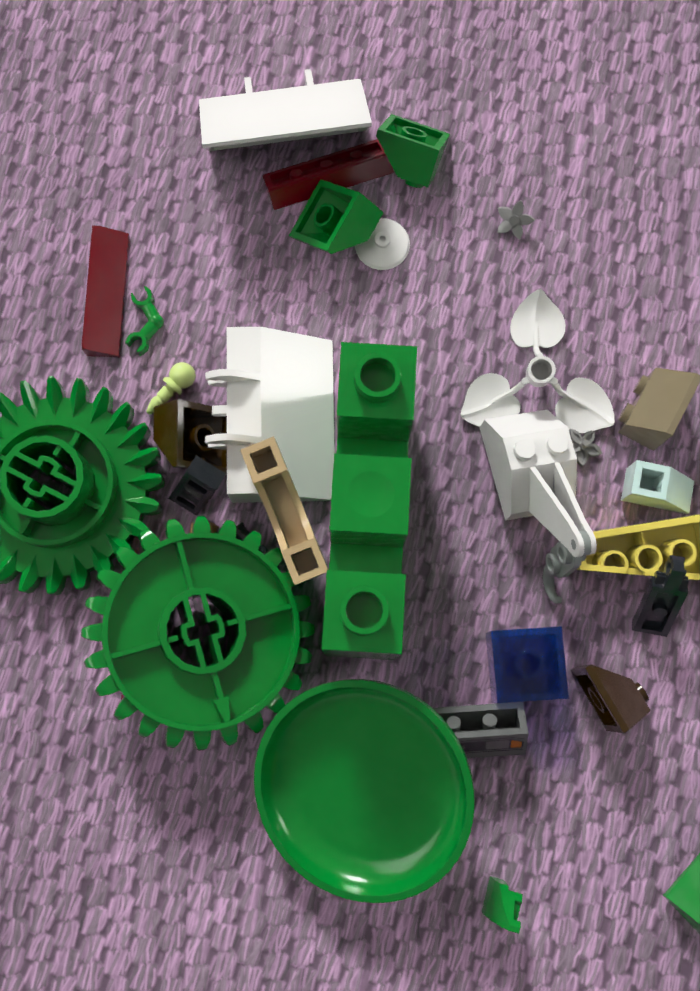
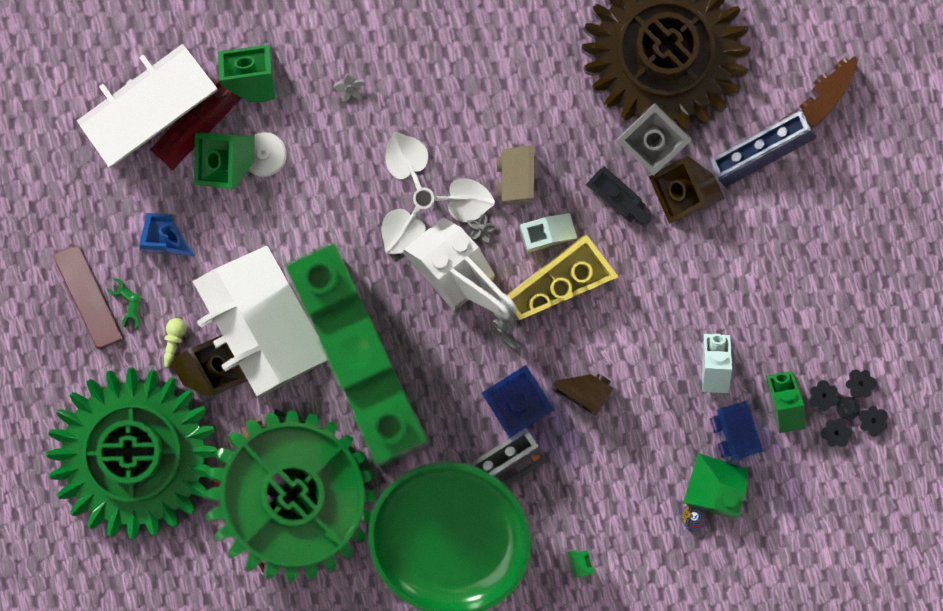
camera: 25 degrees left, 5 degrees up
(197, 486) = (232, 401): black slope -> none
(222, 270) = (162, 236): none -> blue slope
(284, 510) = (304, 388): tan arch -> none
(662, 599) = (584, 310): black hinge -> none
(667, 920) = (693, 517): none -> tile

